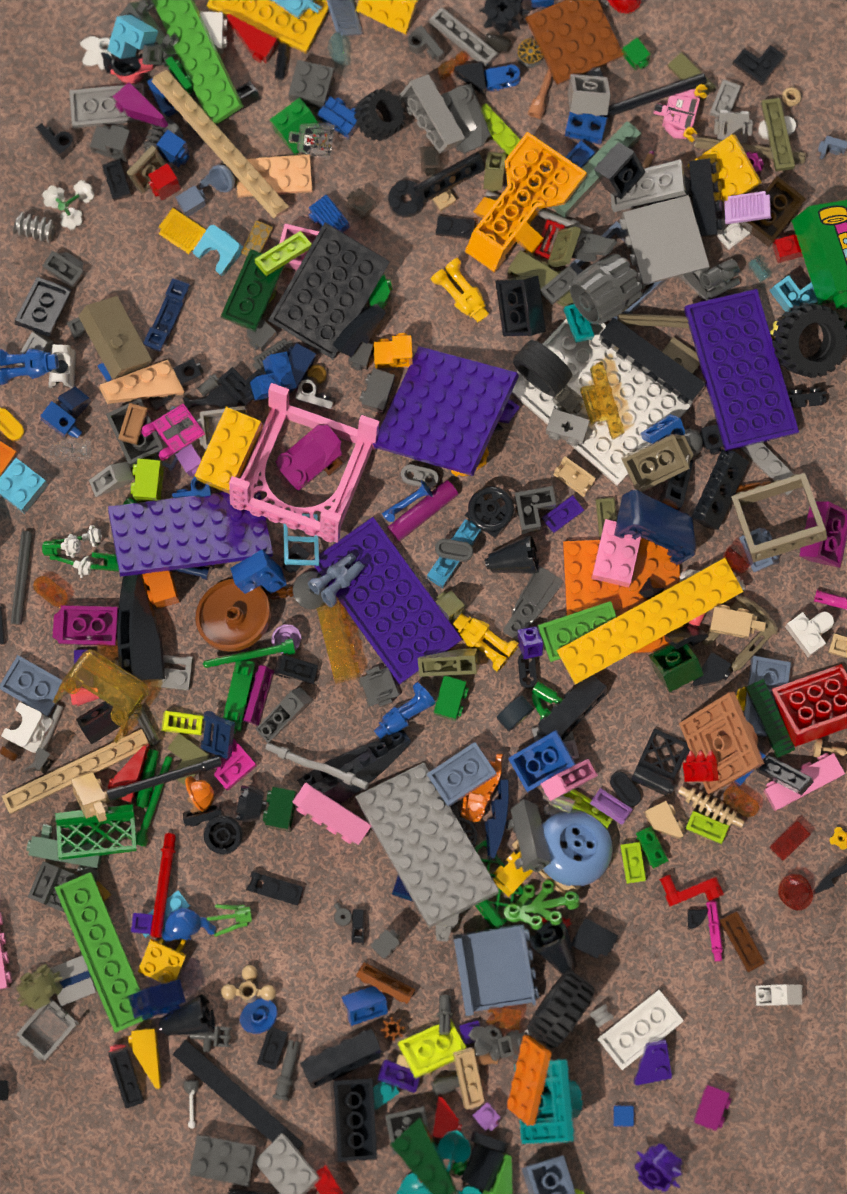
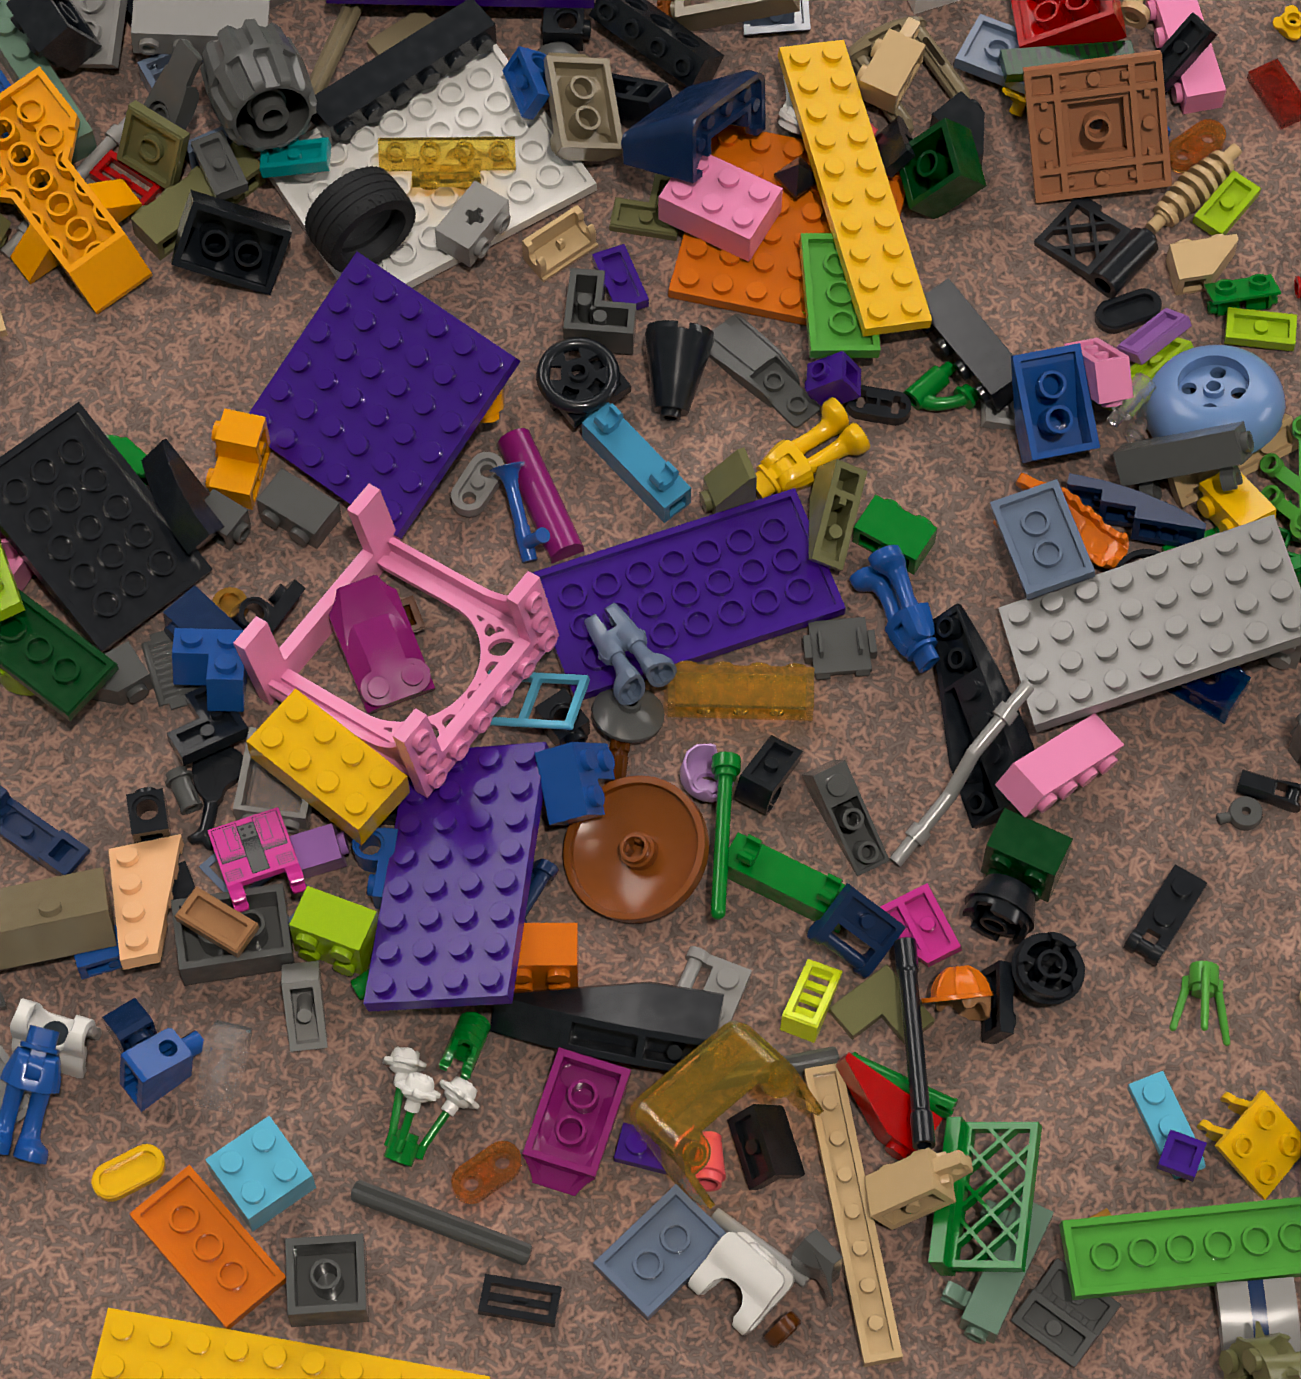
camera: 80 degrees left, 15 degrees down
(95, 872) = (1051, 1244): dark grey piece -> none
(141, 836) = (949, 1087): green piece -> none
(163, 884) = (1113, 1103): red axle -> none
(183, 923) = (1202, 1082): blue piece -> none
(258, 695) = (797, 848): magenta plate -> none
(454, 227) = (46, 317): black plate -> none
(454, 550) = (633, 451): dark grey tile -> none
(471, 301) = (190, 327): yellow piece -> none
(515, 713) = (953, 434): black wheel -> none
(568, 401) = (431, 208): clear smoke brick -> none
(700, 767) = (1128, 180): red plate -> none
(735, 561) = (792, 35): clear red hair -> none

